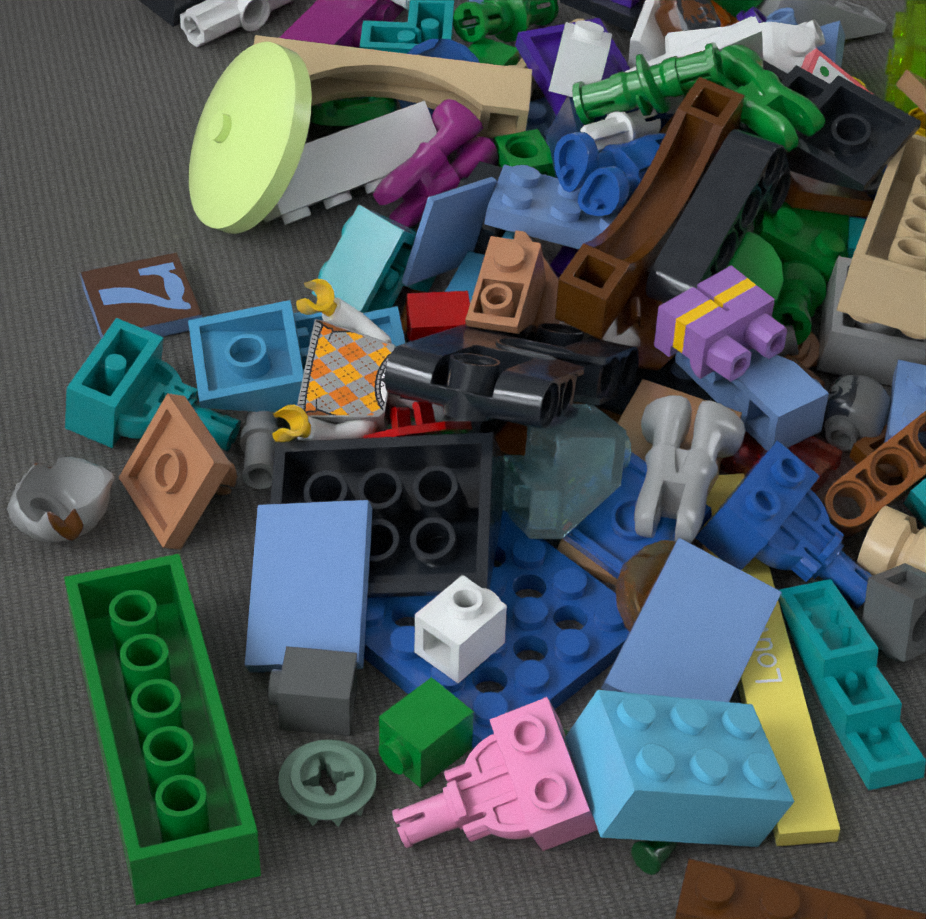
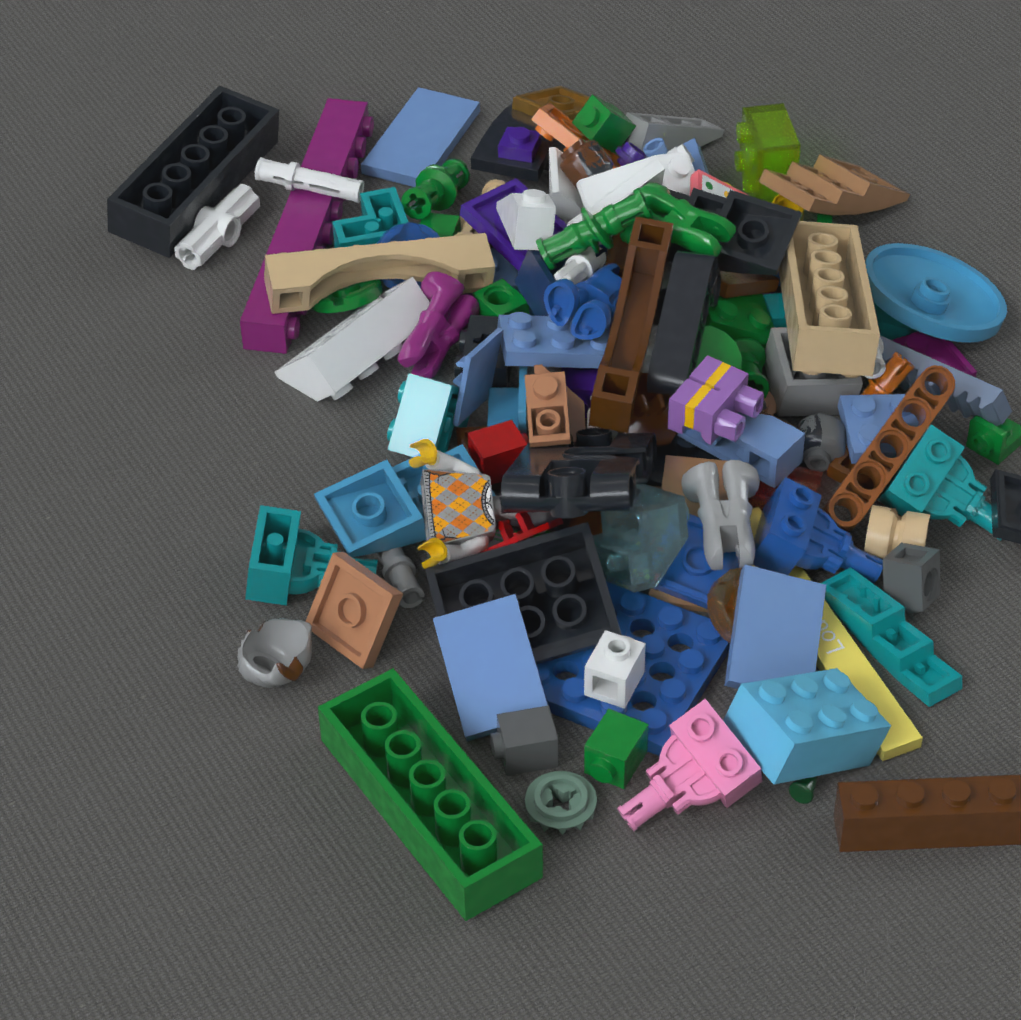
camera: 15 degrees left, 0 degrees up
(143, 293) = (252, 481): reddish brown tile -> none
(250, 137) = (295, 339): yellowish green dish -> none

